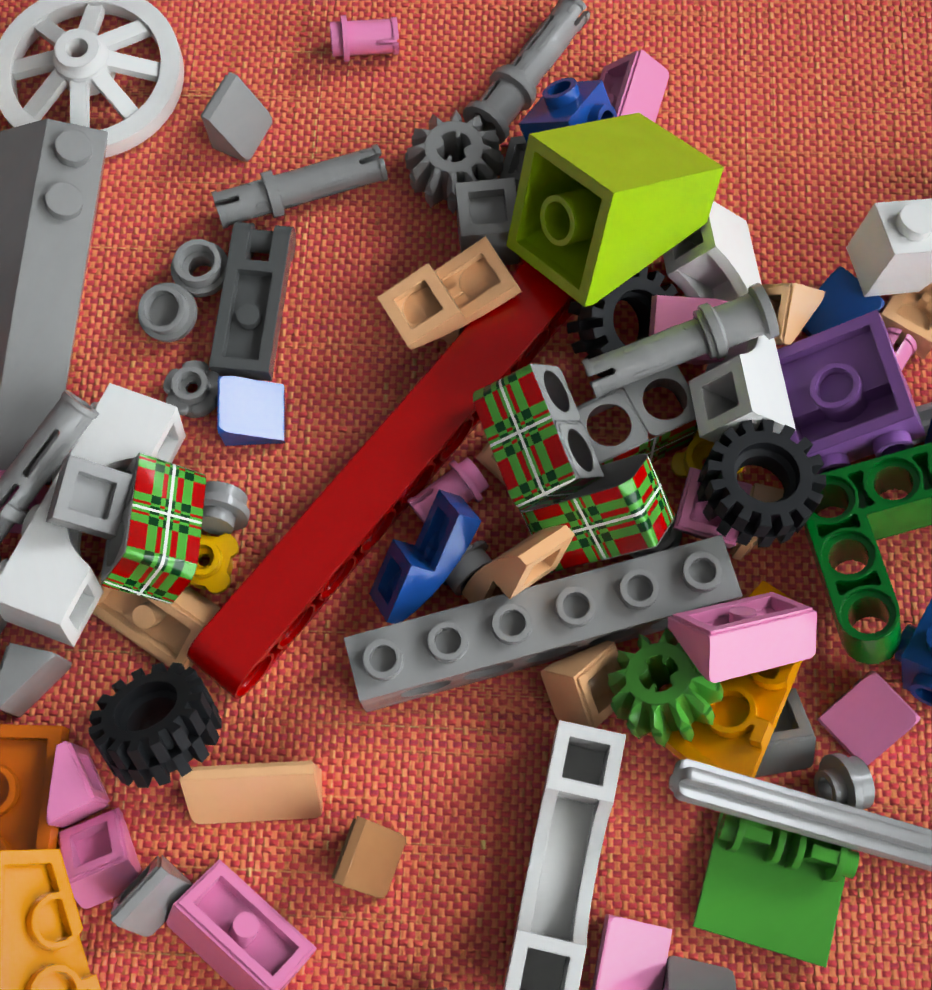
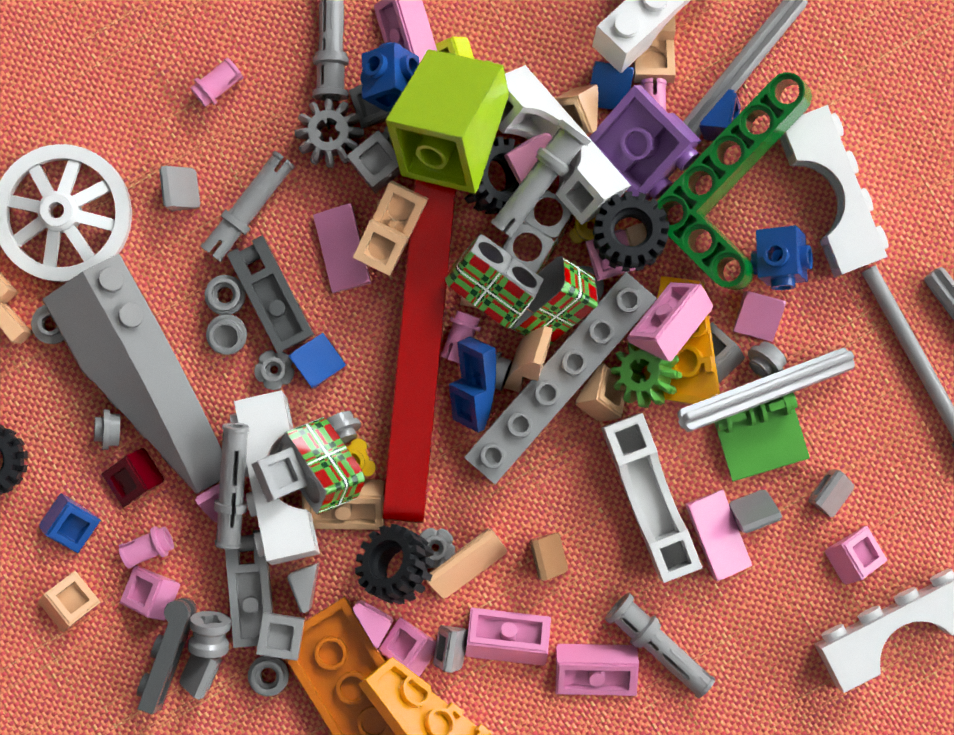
camera: 40 degrees left, 15 degrees up
(246, 737) = (444, 540): none -> light grey plate
(364, 325) = (339, 241): none -> bright pink slope

